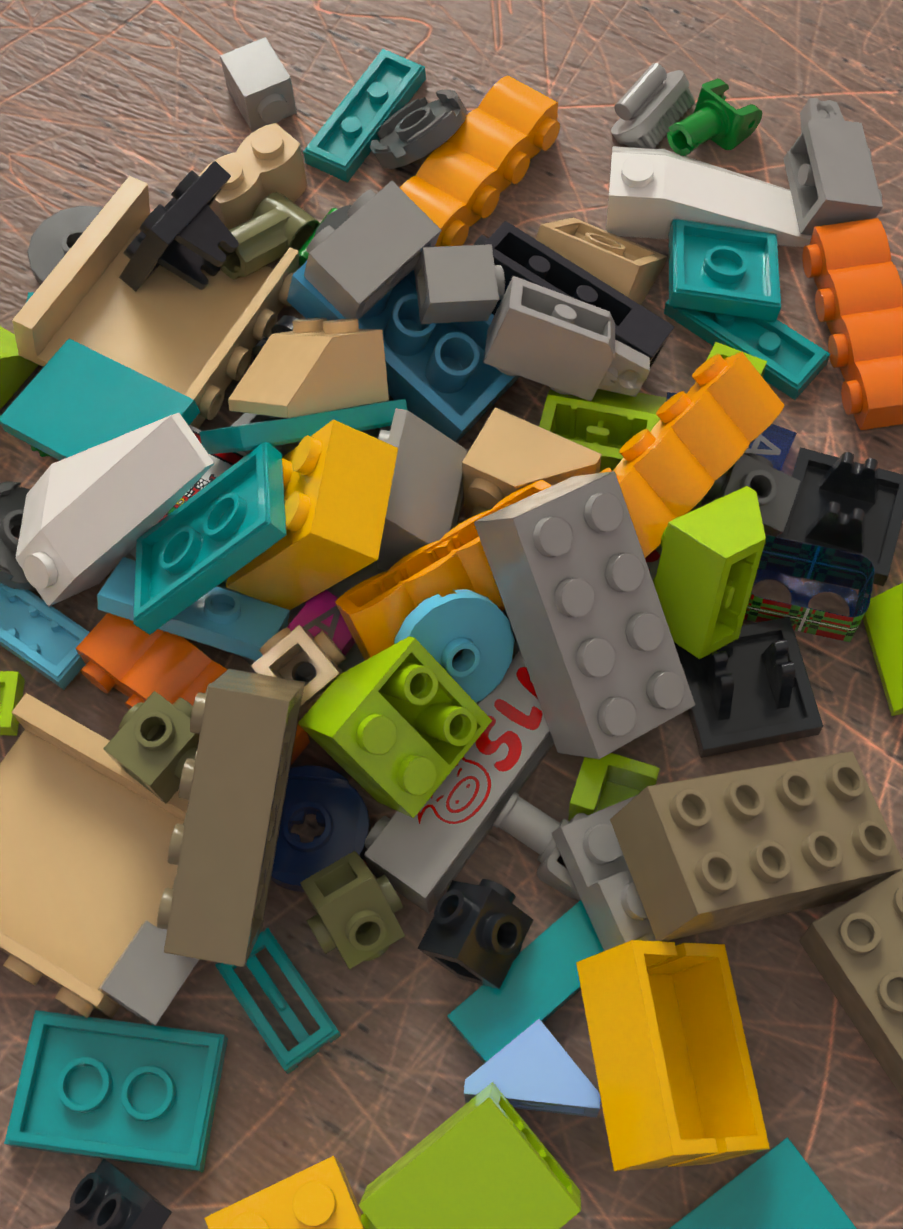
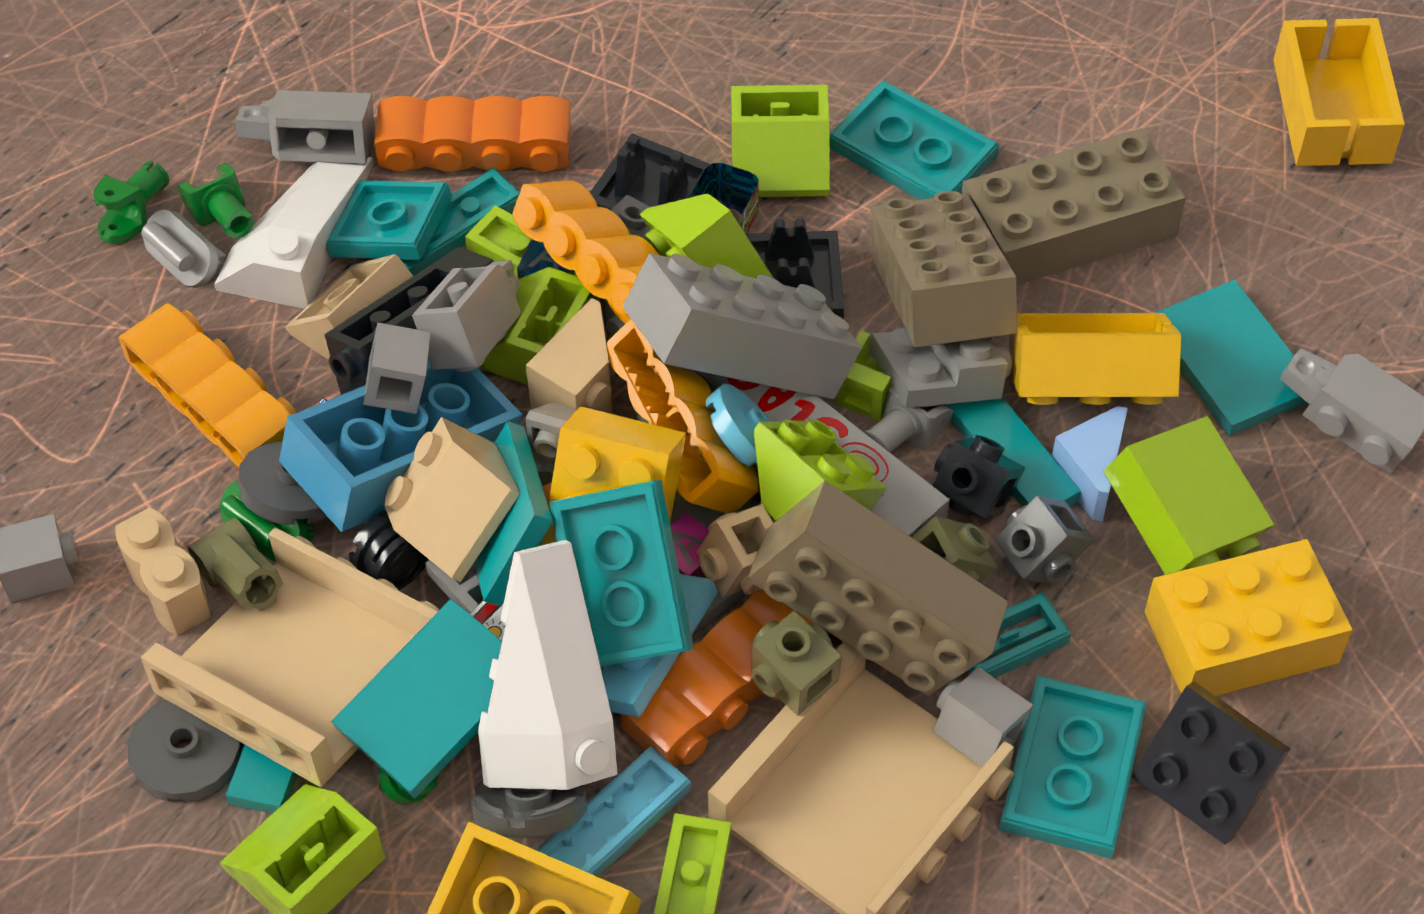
camera: 85 degrees left, 10 degrees down
(183, 233) = (229, 612): black plate -> none
(369, 250) = (355, 415): light grey brick -> none
(376, 96) = (94, 473): teal tile -> none
(392, 1020) = (1043, 540): none -> dark grey brick
(418, 129) = (153, 420): dark grey plate -> none
(687, 43) = (127, 202): none -> green piece

